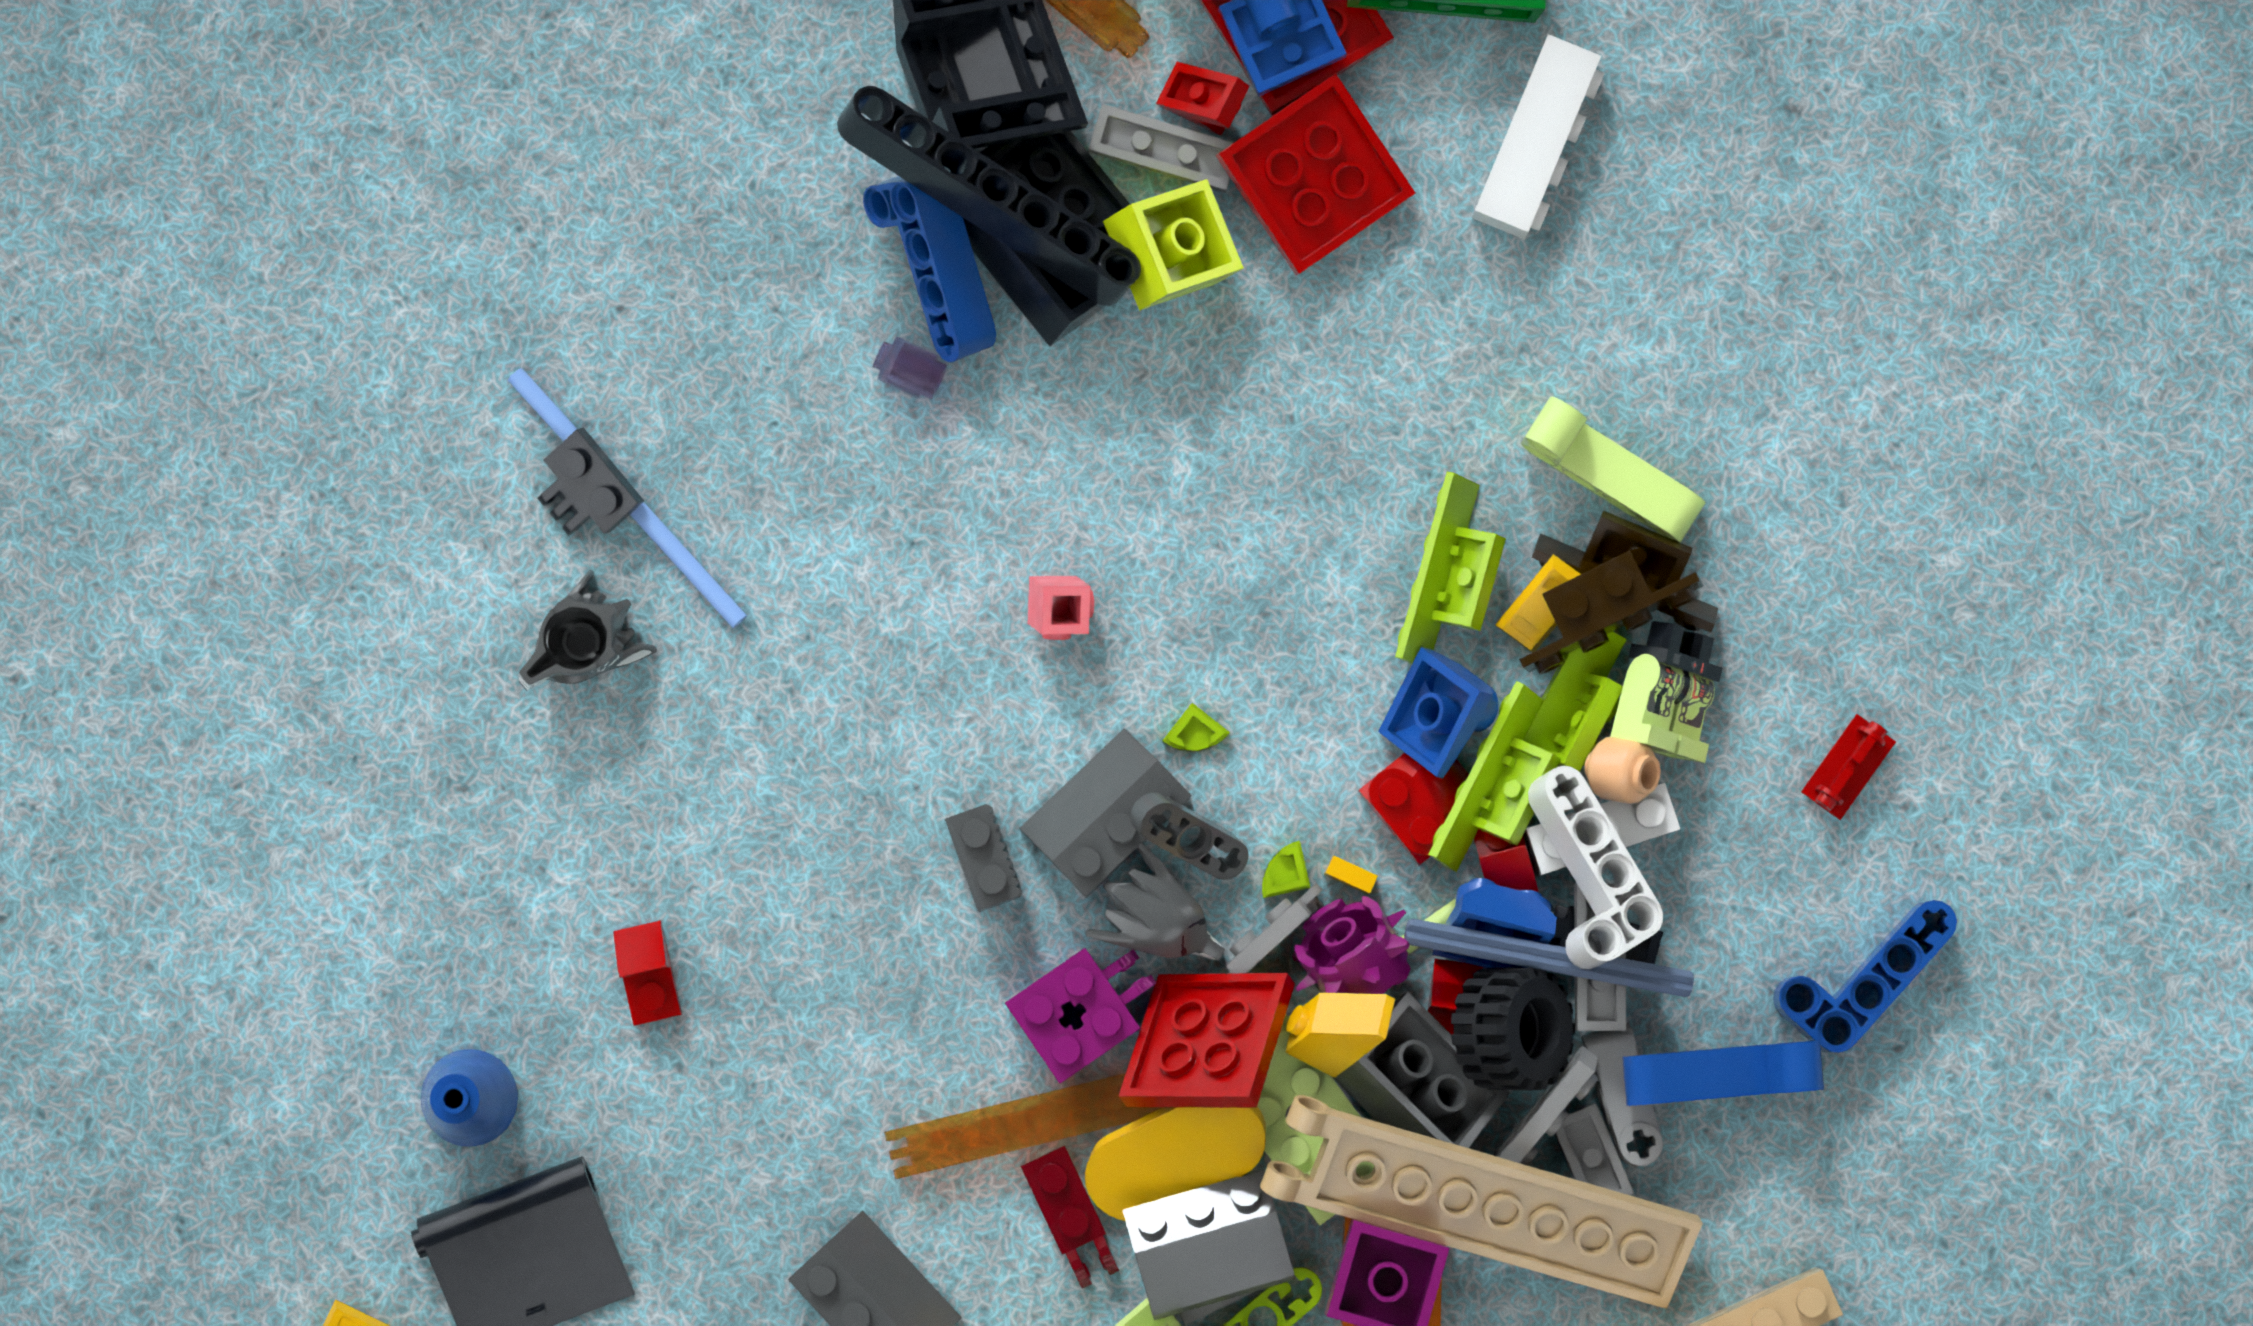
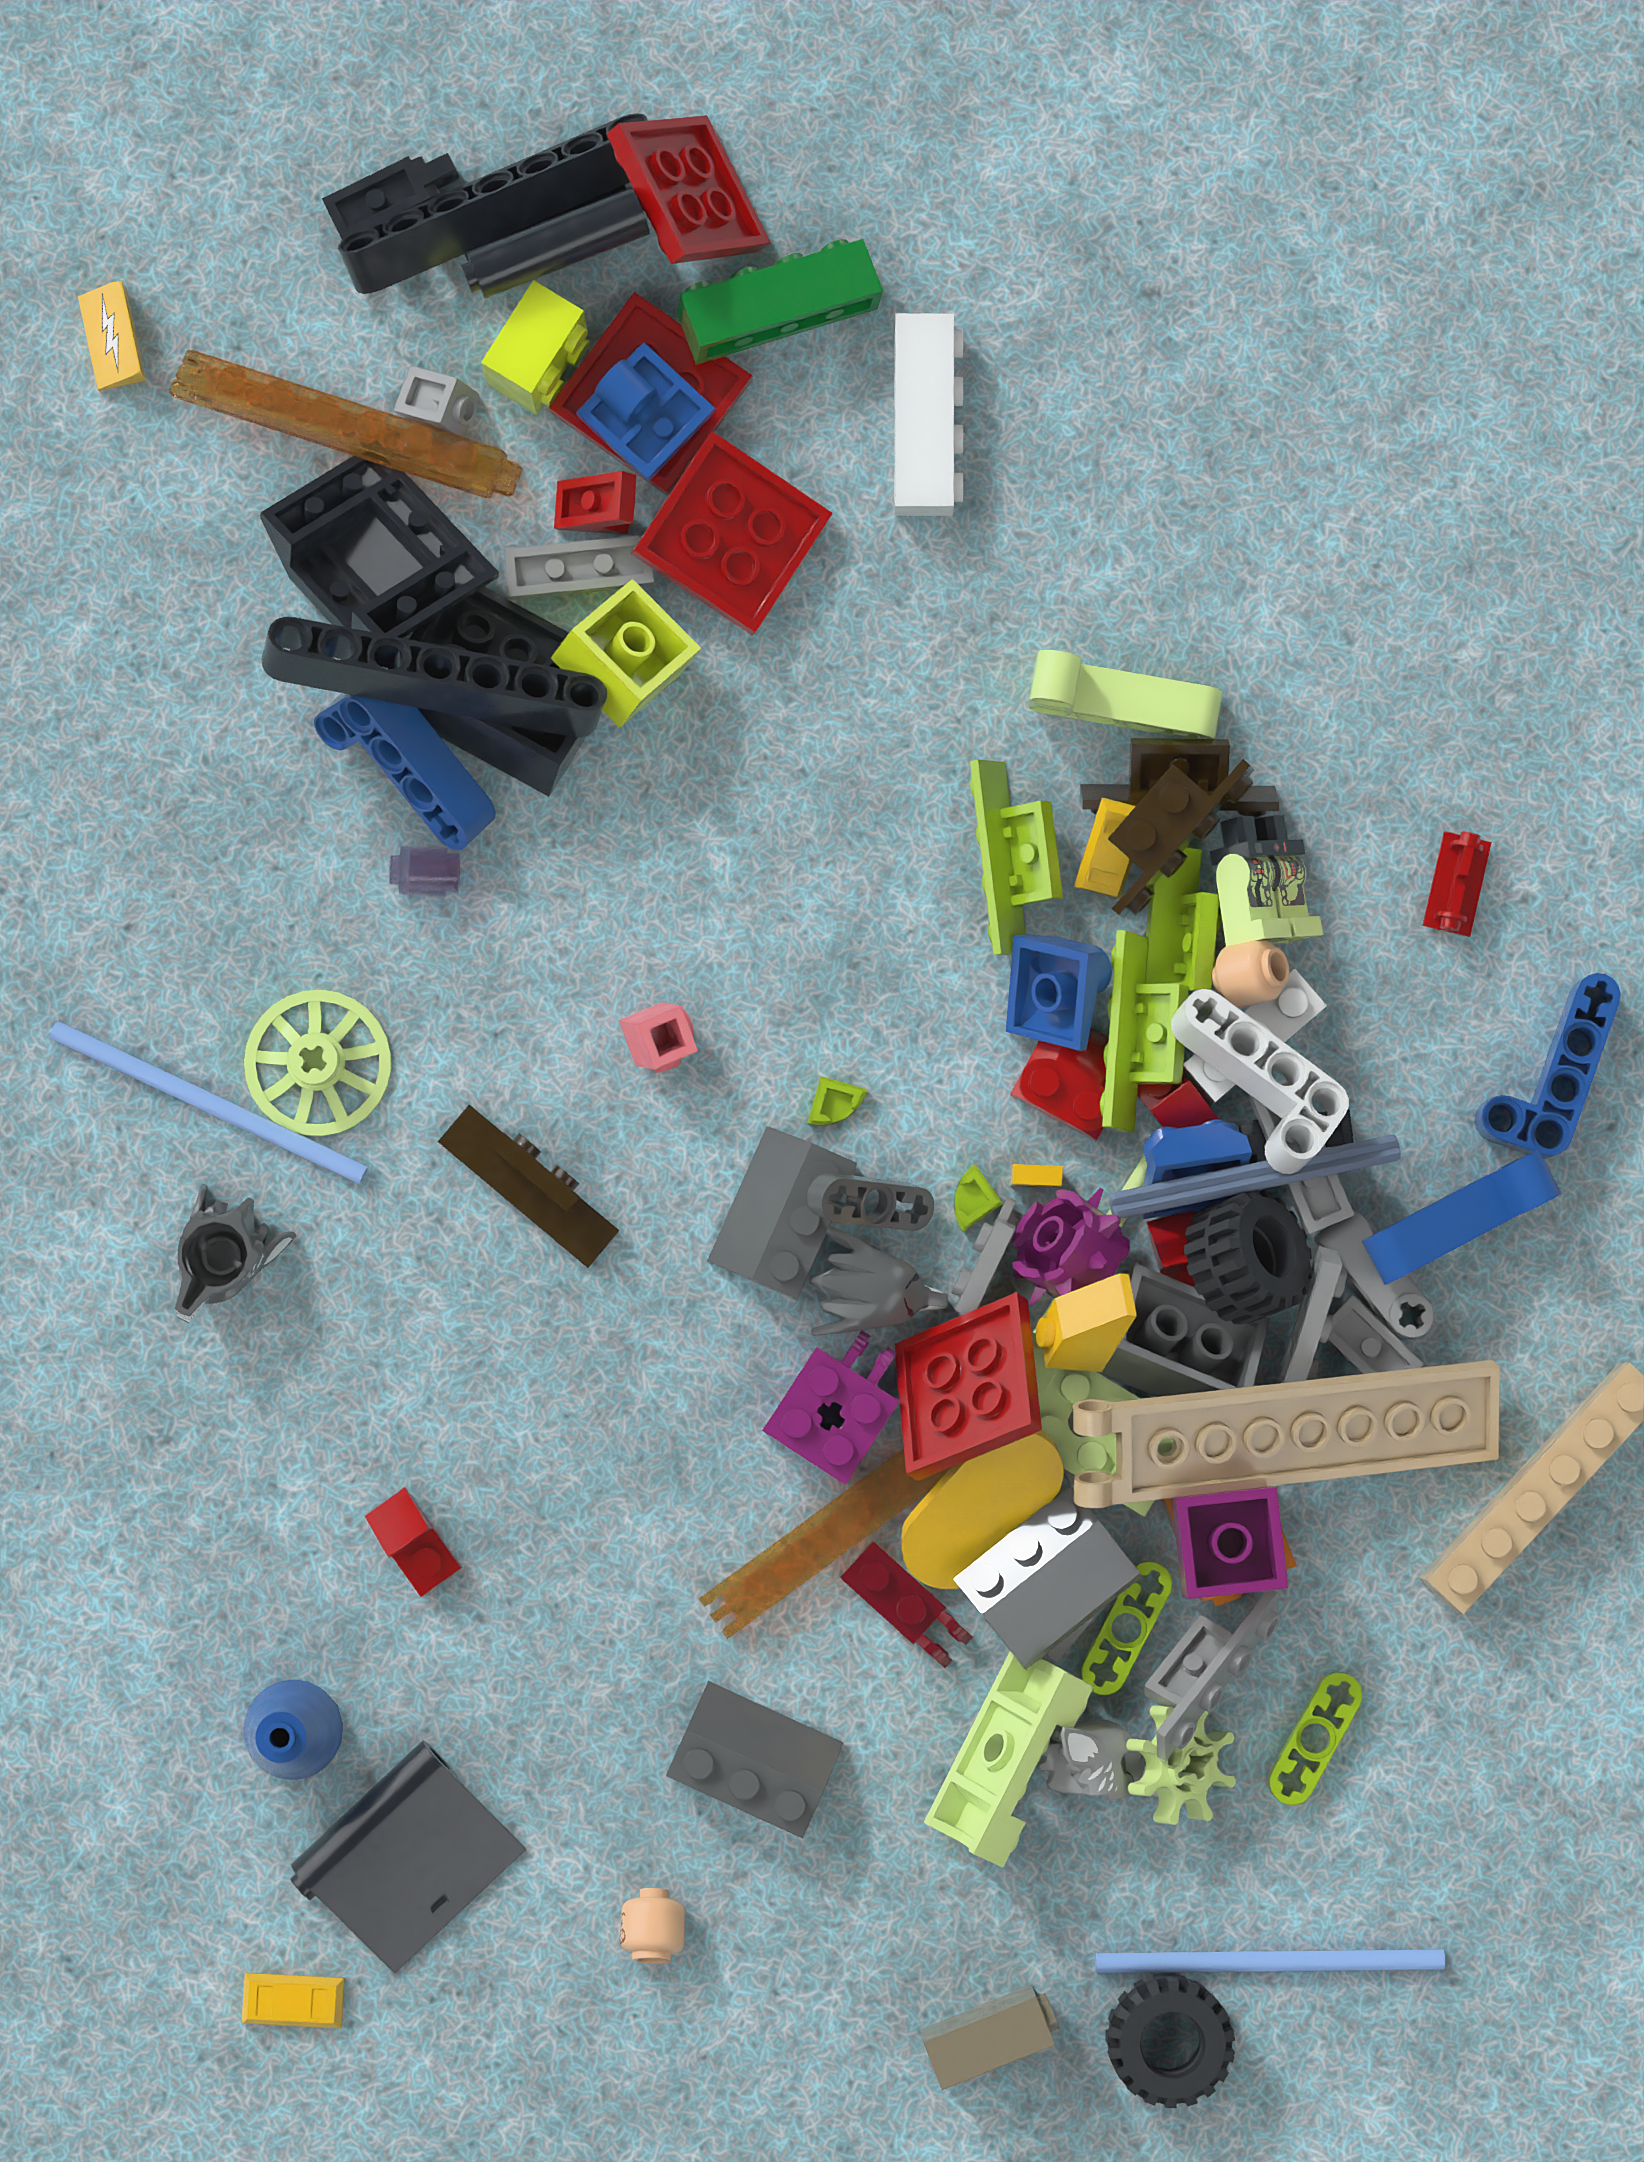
camera: 30 degrees left, 0 degrees up
(588, 485) = (166, 1105): black hinge -> none
(740, 502) = (317, 1062): none -> yellowish green wheel
(885, 693) = (529, 1186): none -> dark brown bracket
(983, 857) = (685, 1302): dark grey brick -> none

